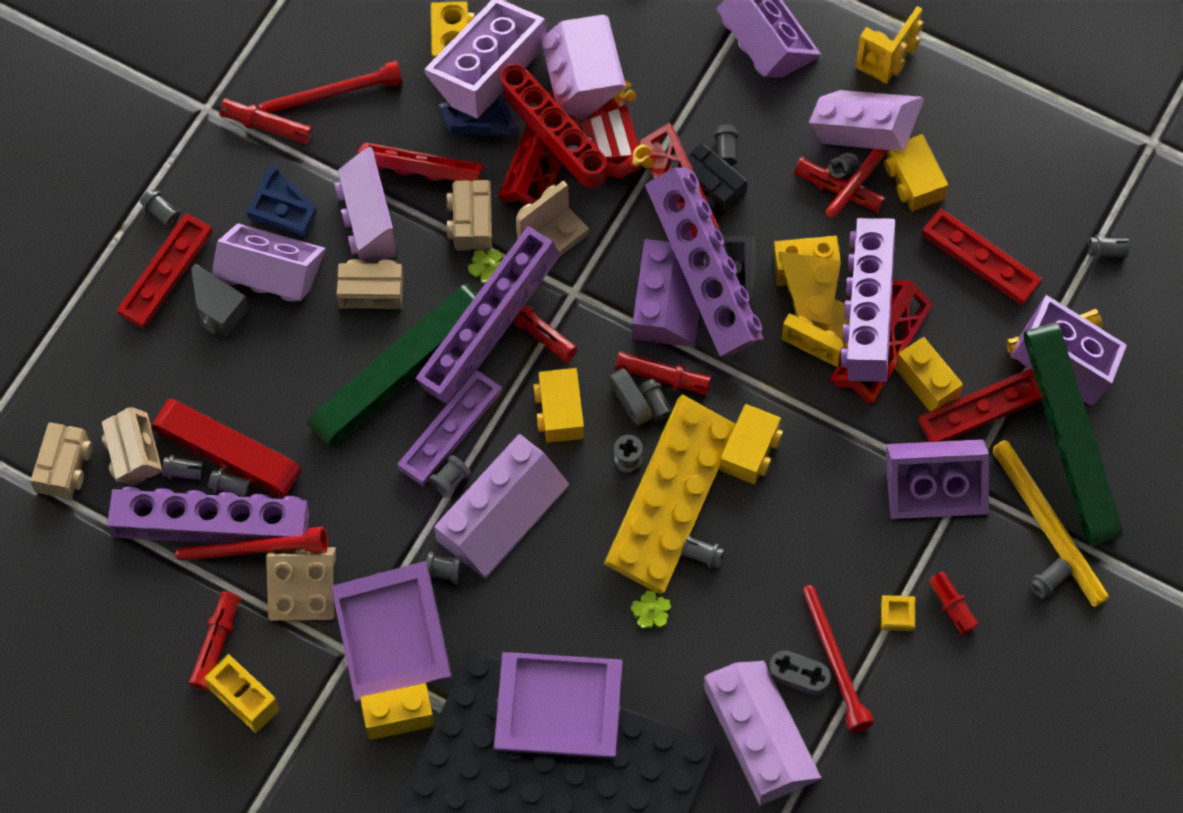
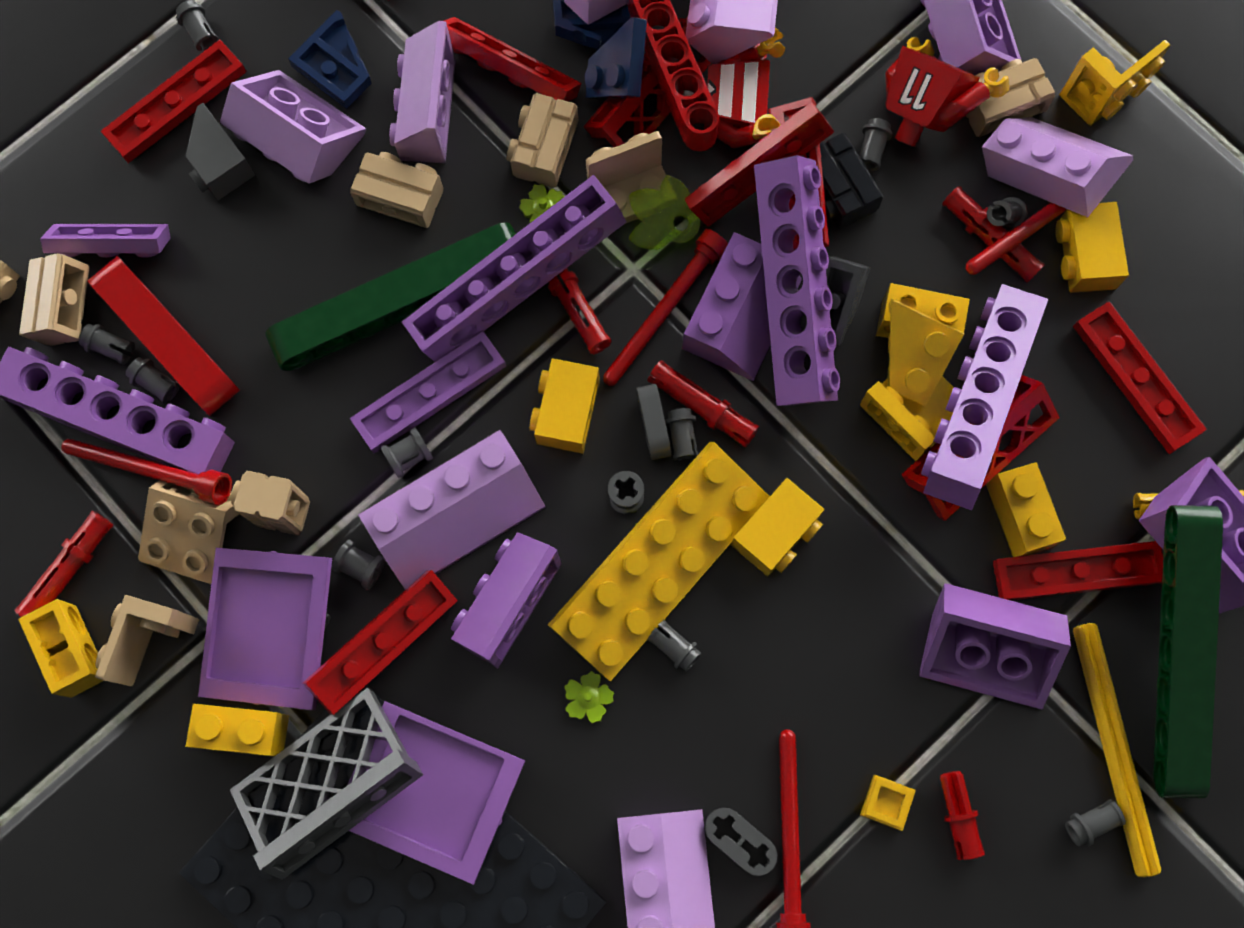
camera: 20 degrees right, 10 degrees up
(153, 390) = (106, 239): none -> medium lavender plate
(300, 646) = (131, 632): none -> tan bracket
(362, 540) = (270, 502): none -> tan brick
(482, 613) = (380, 642): none -> red plate
(497, 731) = (333, 814): none -> dark grey fence
(512, 141) = (618, 64): none -> dark blue wing
(565, 554) = (506, 598): none -> medium lavender slope
(580, 241) = (657, 213): none -> clear neon green plate
(627, 259) = (708, 250): none -> red piece
(635, 197) = (737, 180): none -> red plate
(759, 92) = (934, 92): none -> red torso
(818, 76) = (1027, 96): none -> tan brick

